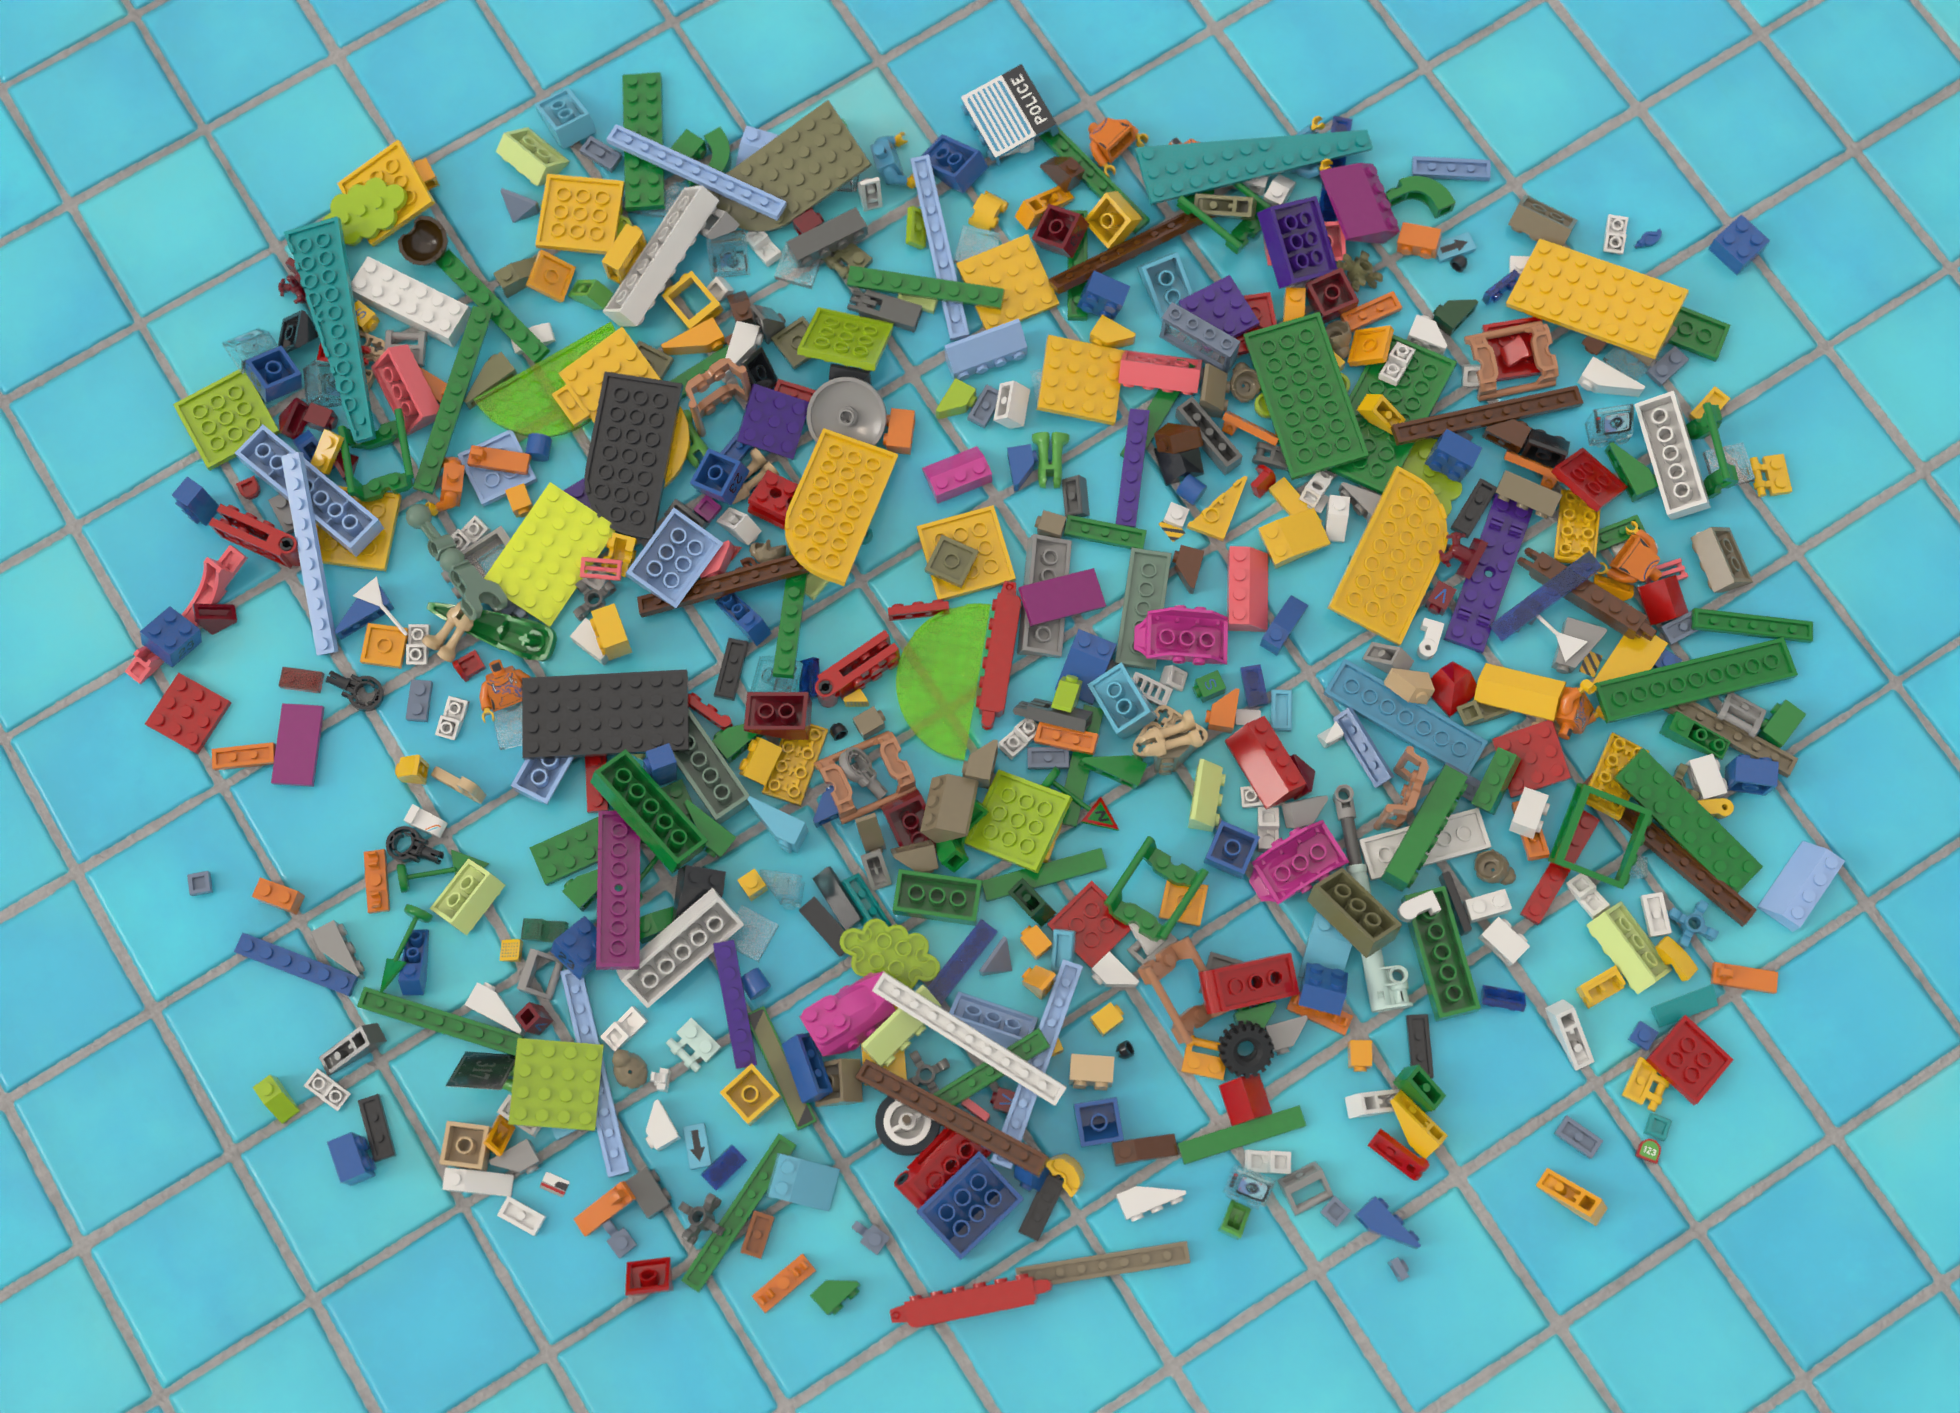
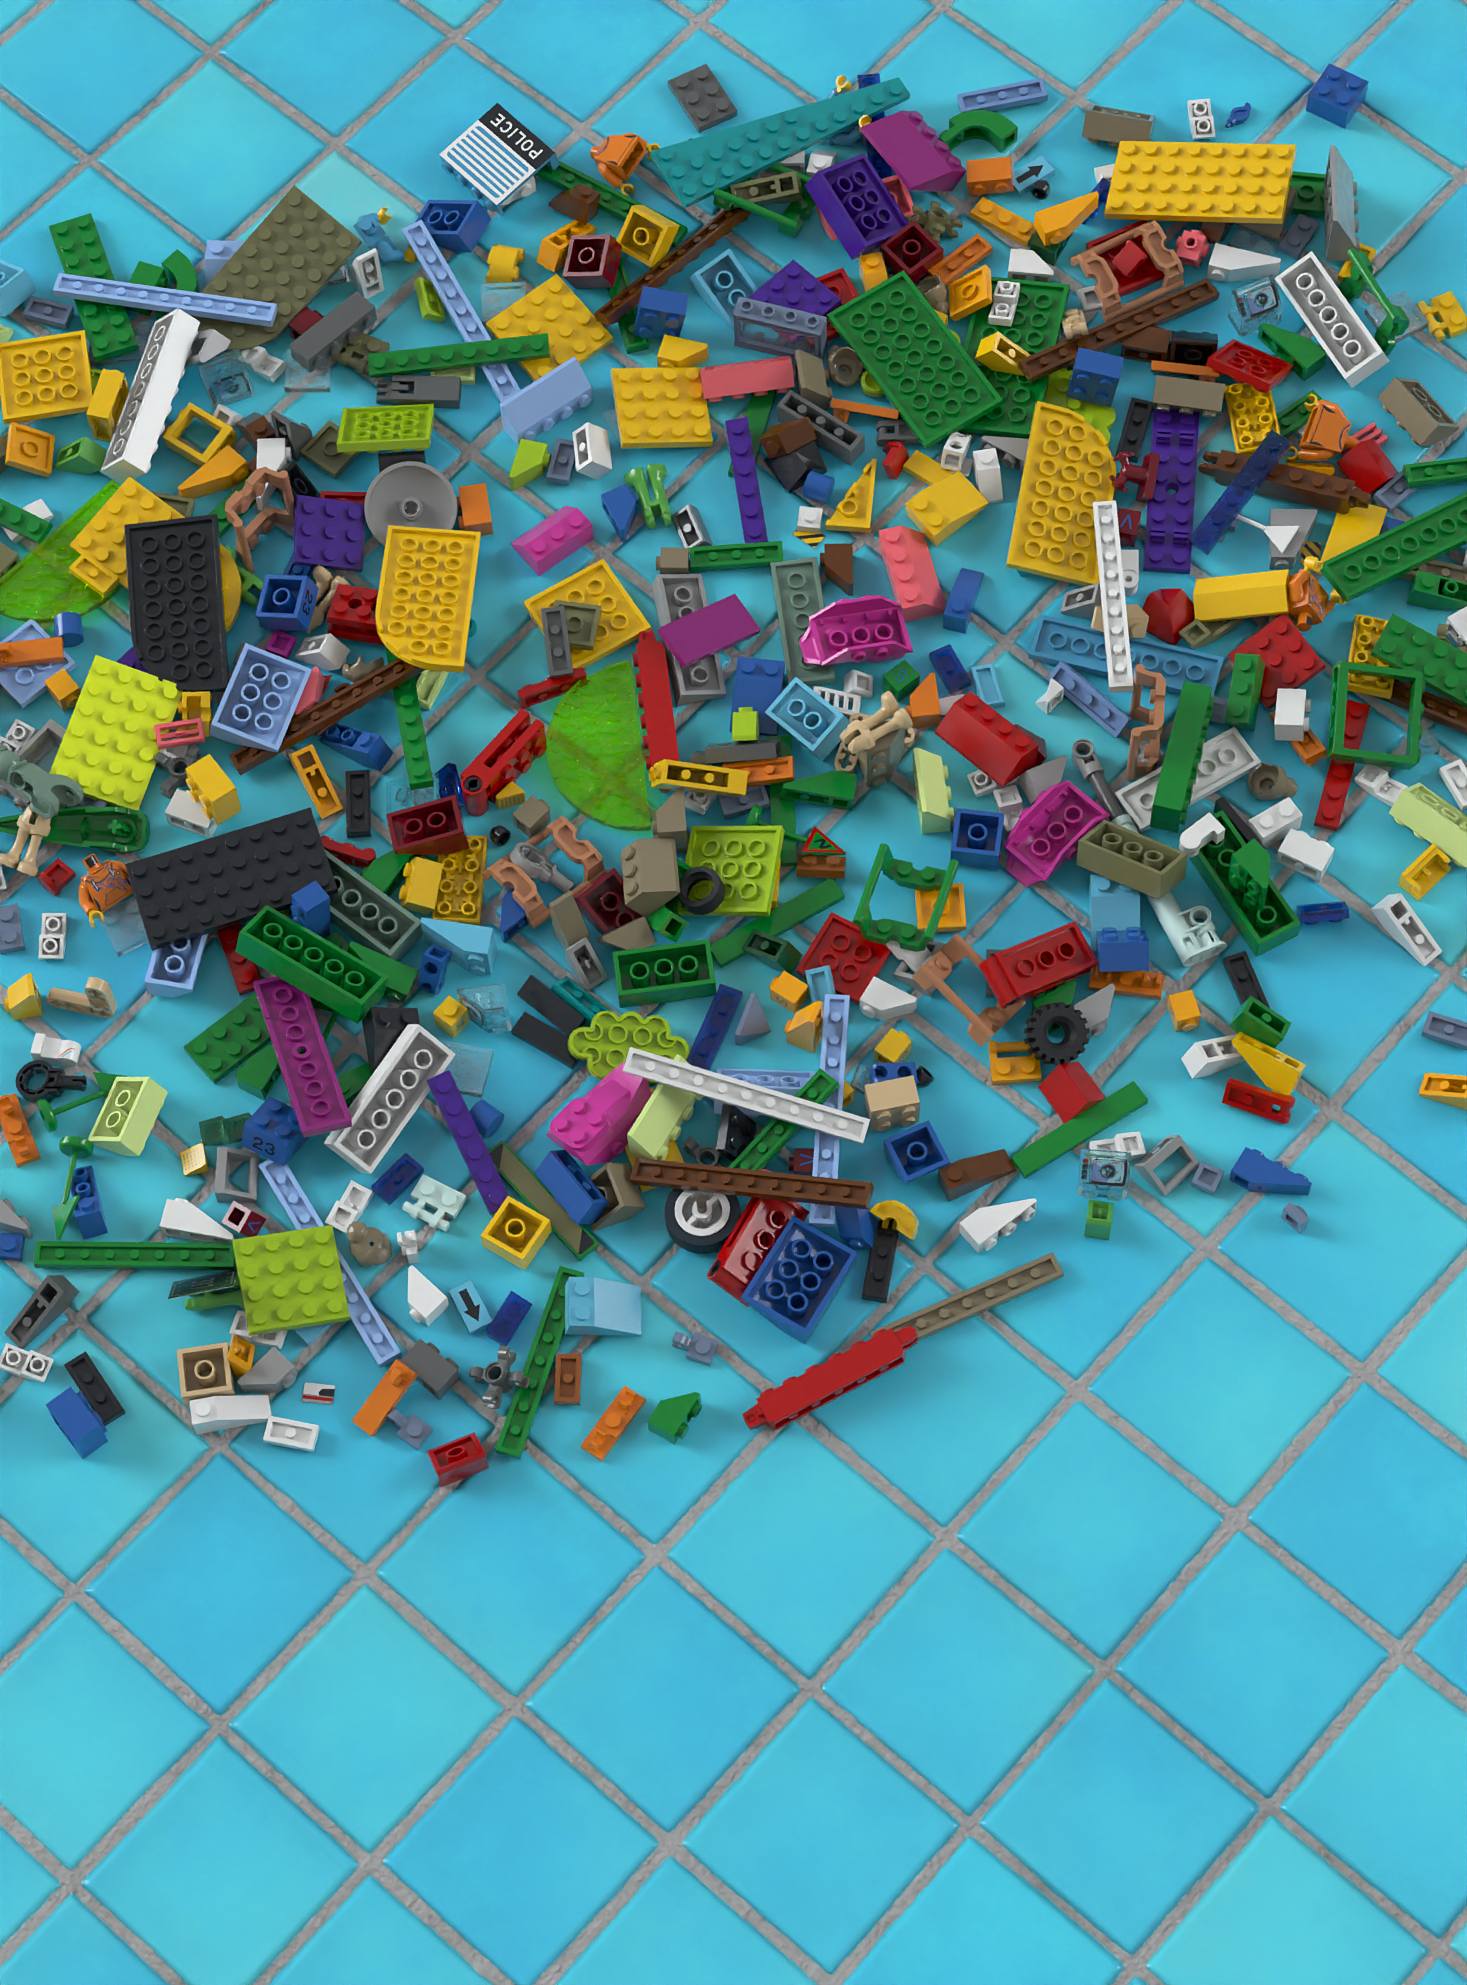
camera: 15 degrees left, 10 degrees down
(669, 1015) = (397, 1179): none -> clear blue plate
(701, 640) = (315, 781): none -> light orange slope
(749, 839) = (433, 969): none -> blue leg
(931, 575) = (557, 642): none -> dark grey plate
(953, 1062) = (735, 1132): none -> black plate
(995, 846) = (708, 904): none -> black tyre
(1013, 733) = (698, 778): none -> yellow slope
(1076, 1040) = (860, 1079): none -> clear plate
(1095, 836) = (821, 866): none -> dark orange plate
(1099, 1045) = (888, 1071): none -> blue leg
(1197, 101) = (702, 98): none -> dark grey plate
(1408, 666) = (1112, 597): none -> white plate
(1419, 284) = (1003, 221): none -> light orange plate
(1450, 400) = (1074, 323): none -> tan plate
(1452, 957) = (1250, 872): none -> green slope
(1467, 301) = (1062, 219): none -> light orange slope
(1572, 361) = (1192, 248): none -> coral brick
(1709, 355) = (1339, 208): none -> light grey slope

